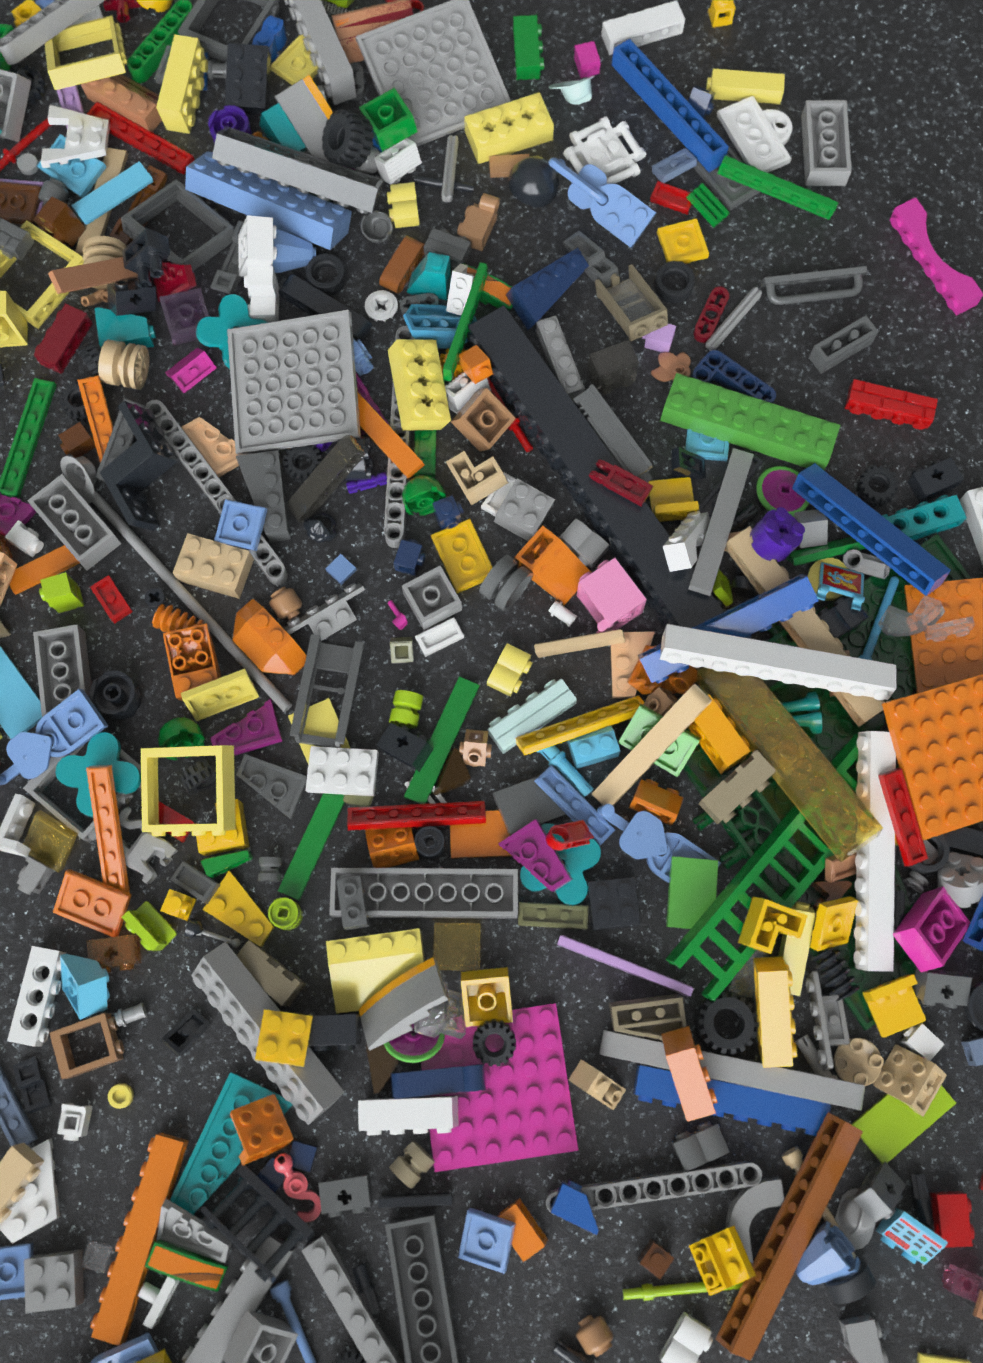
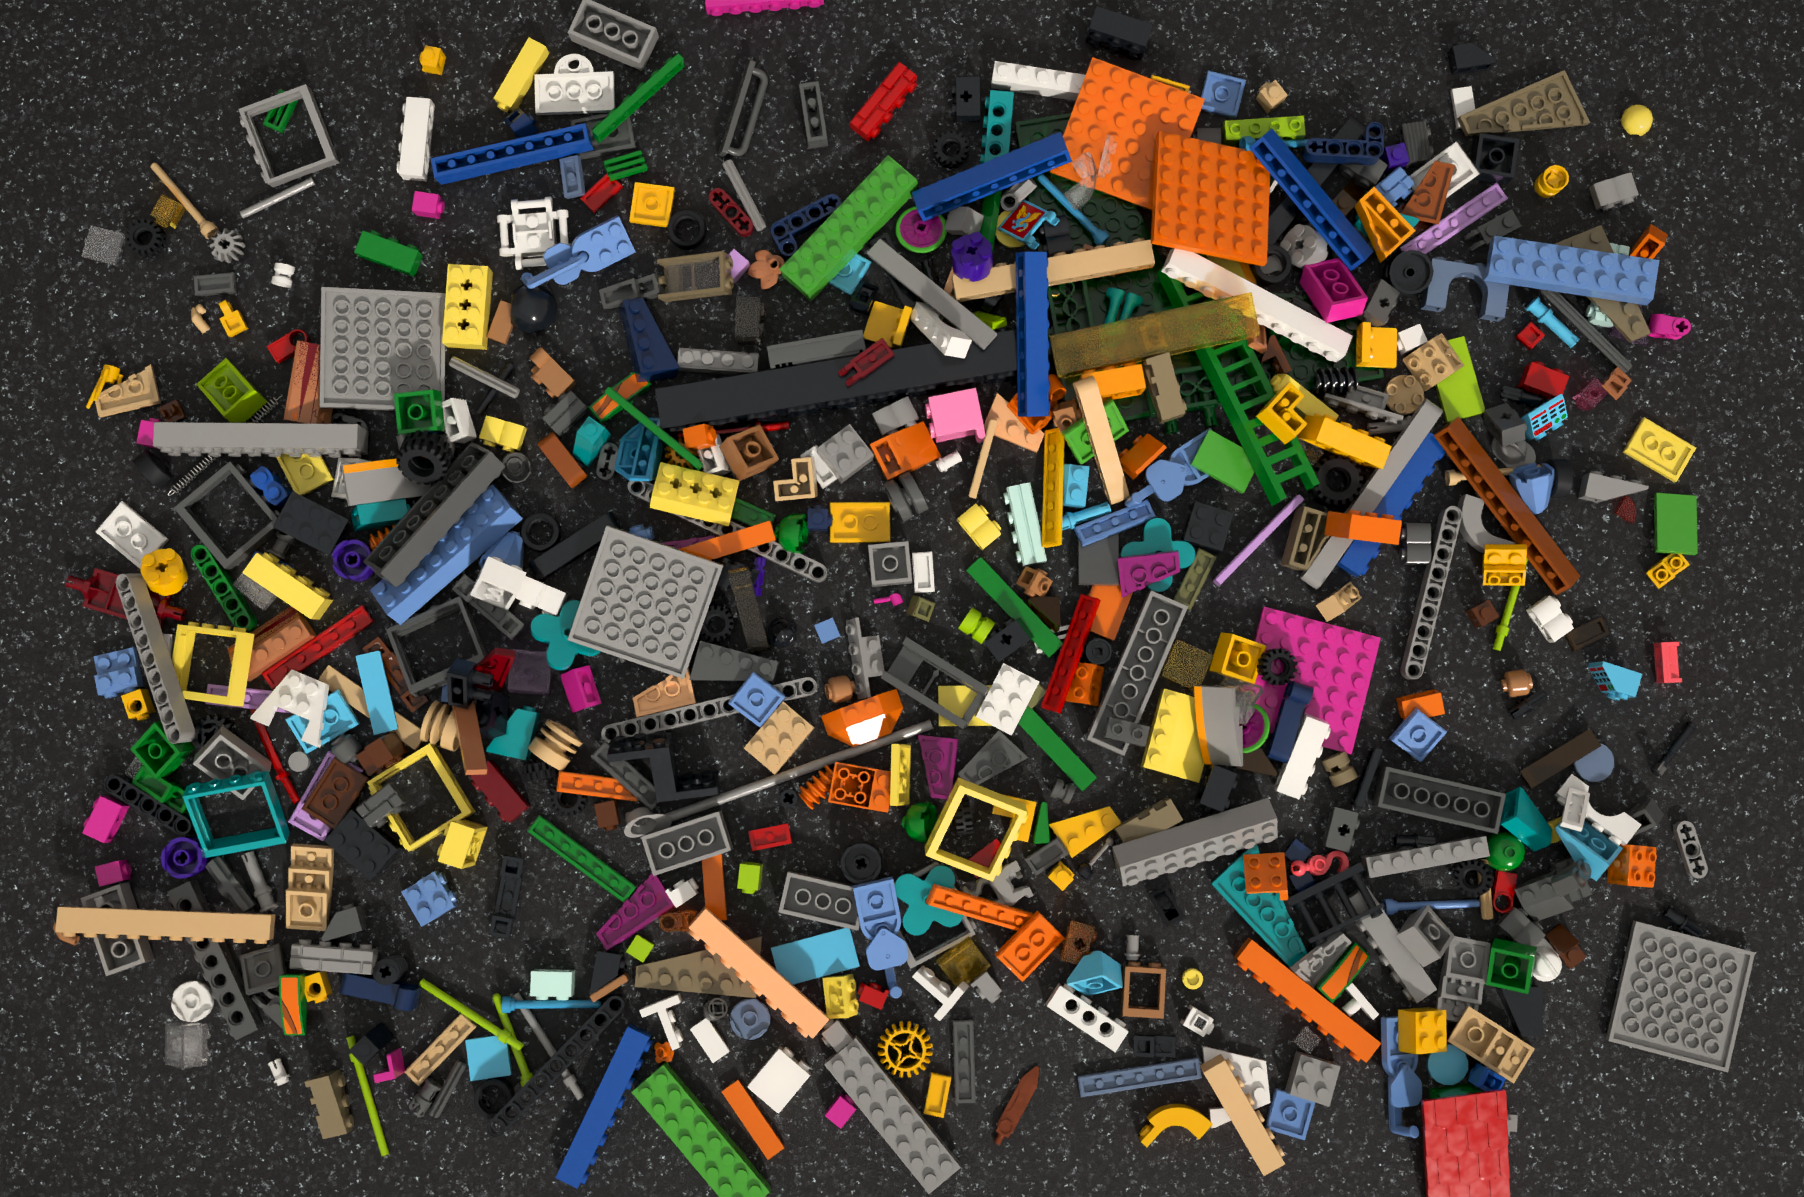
camera: 70 degrees left, 10 degrees up
(149, 926) = (1069, 905): lime bracket -> none
(283, 1038) = (1211, 827): yellow plate -> none
(285, 914) = (1105, 791): lime wheel -> none
(381, 297) = (585, 491): white gear -> none
(409, 557) = (843, 567): dark blue brick -> none
(459, 289) = (621, 420): white bracket -> none
(573, 833) = (1141, 534): red piece -> none
(574, 1206) = (1423, 657): blue slope -> none
(575, 91) = (452, 230): light aqua piece -> none
(778, 662) = (1081, 308): white brick -> none
(833, 923) = (1298, 363): yellow plate -> none
(903, 817) = (1242, 270): red tile -> none
(916, 881) = (1288, 282): light grey bush -> none

